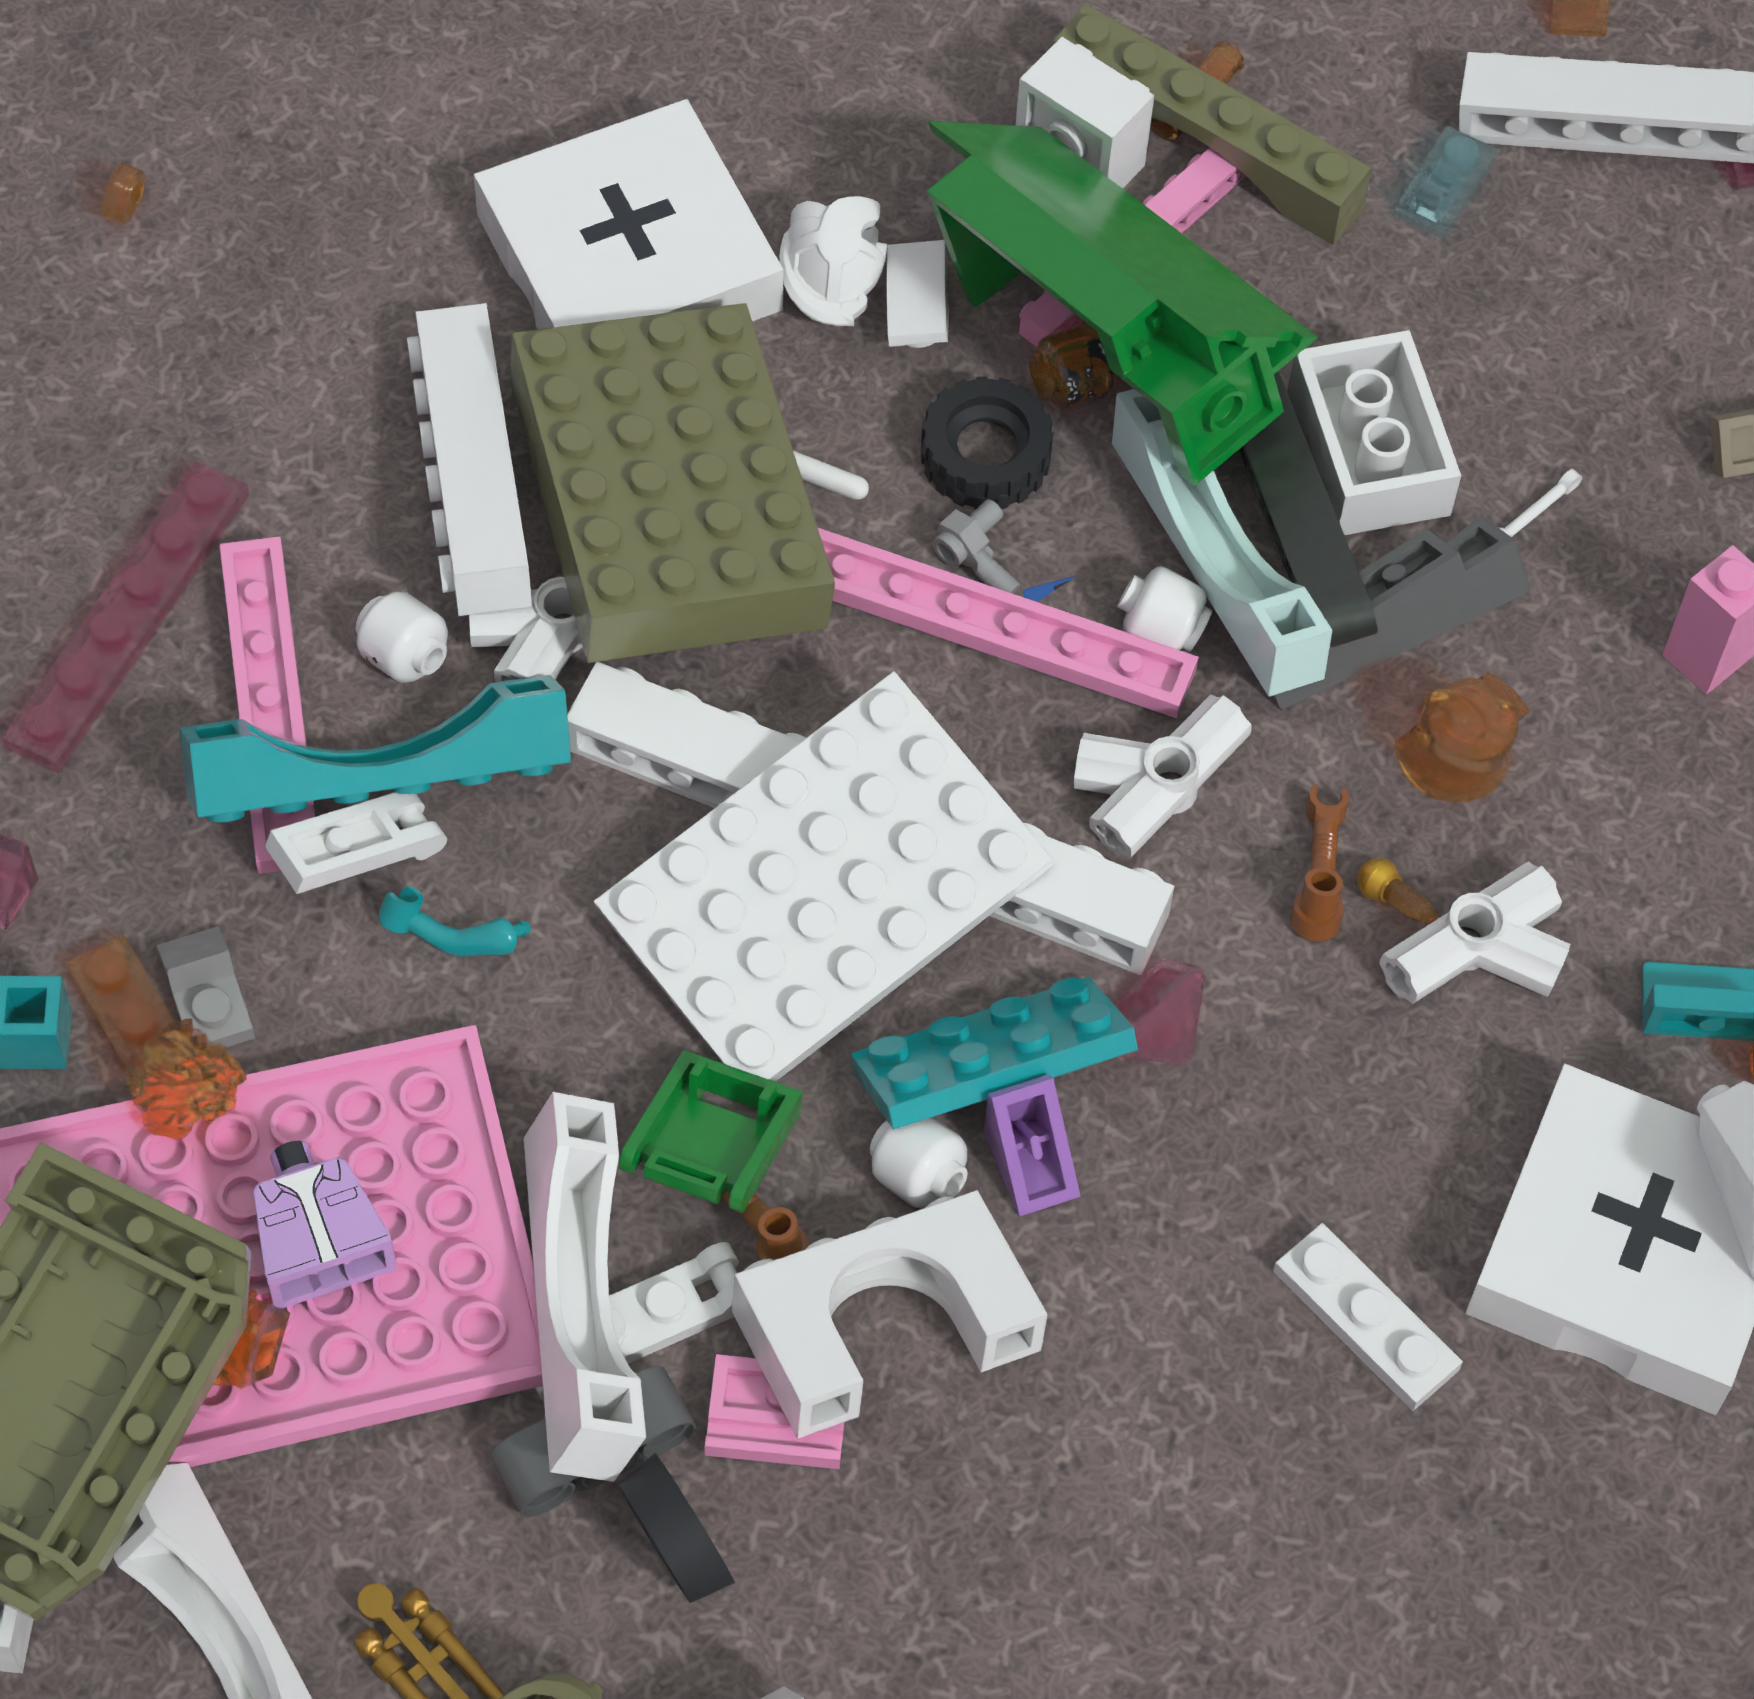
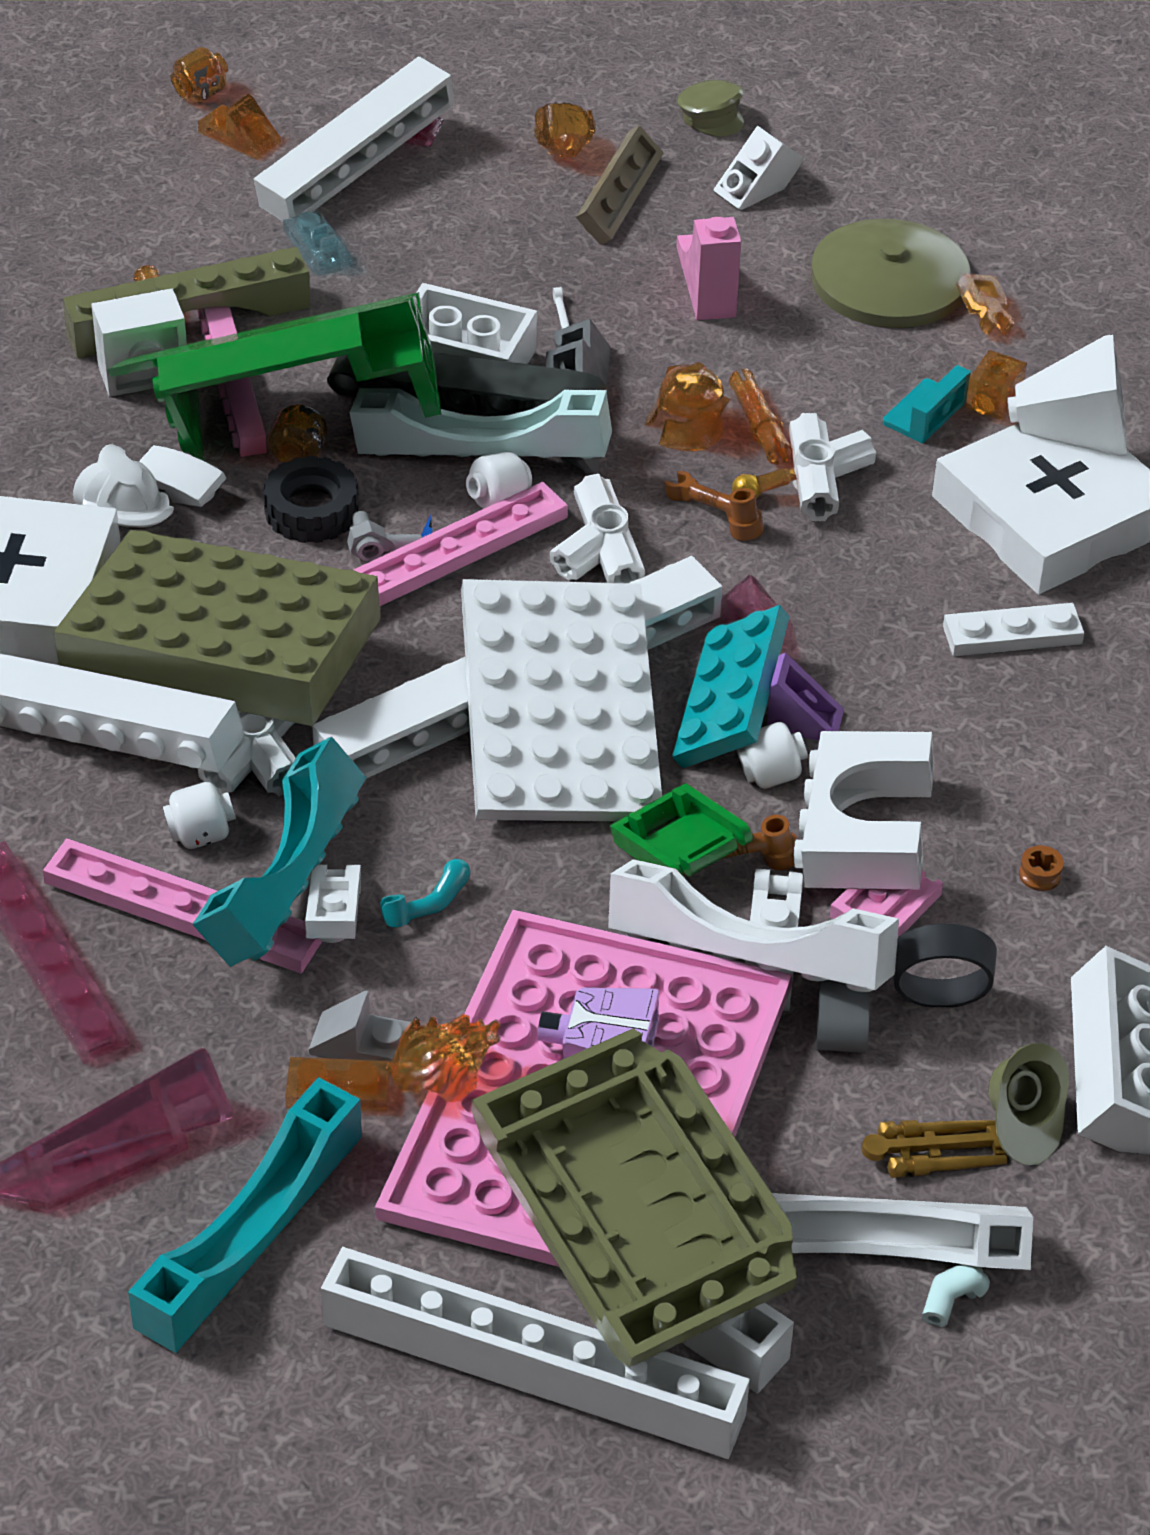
camera: 55 degrees left, 15 degrees down
(983, 1560) = (1036, 877): none -> dark orange bush
(1507, 839) = (765, 426): none -> clear orange pin

